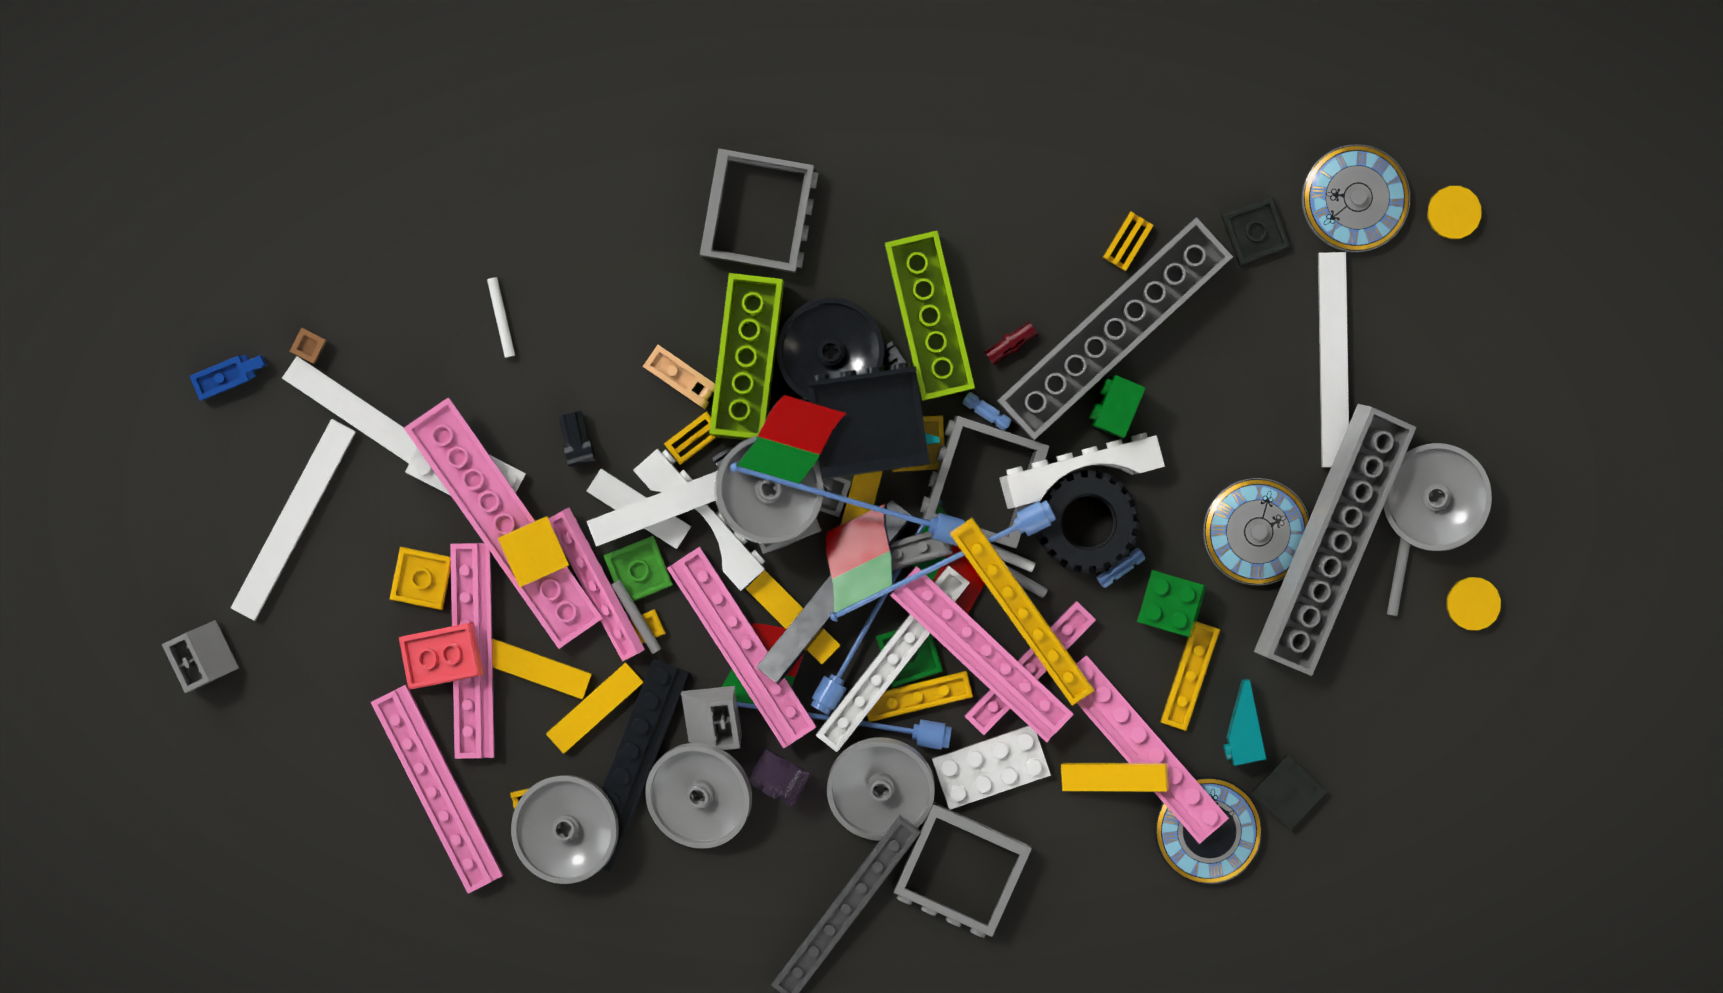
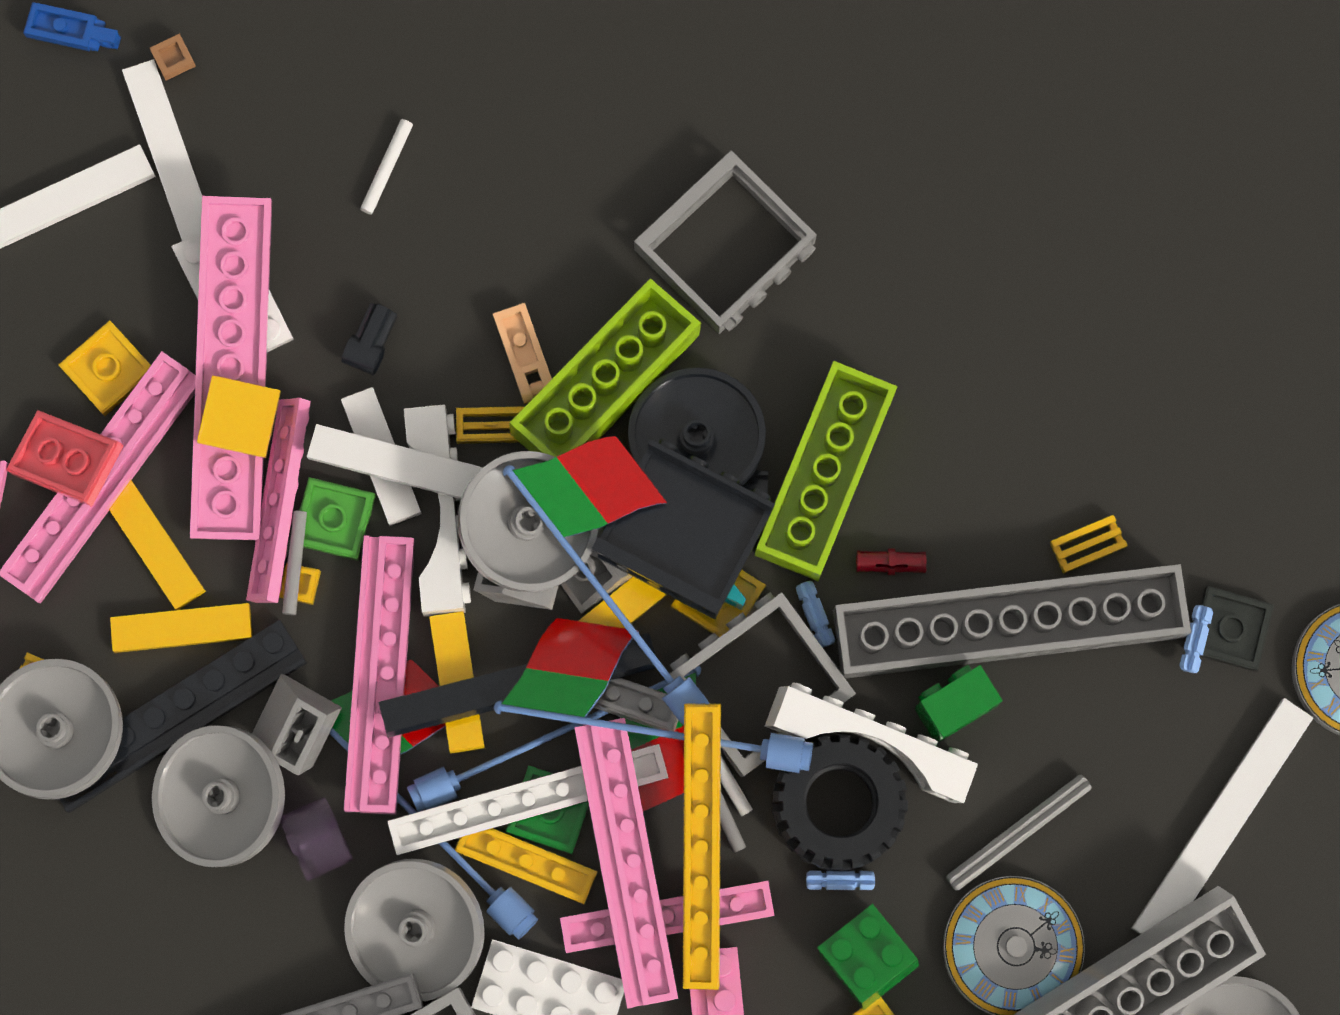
camera: 35 degrees right, 10 degrees down
(1211, 457) = (1018, 832): none -> light grey axle
(1239, 255) = (1196, 640): none -> light blue axle

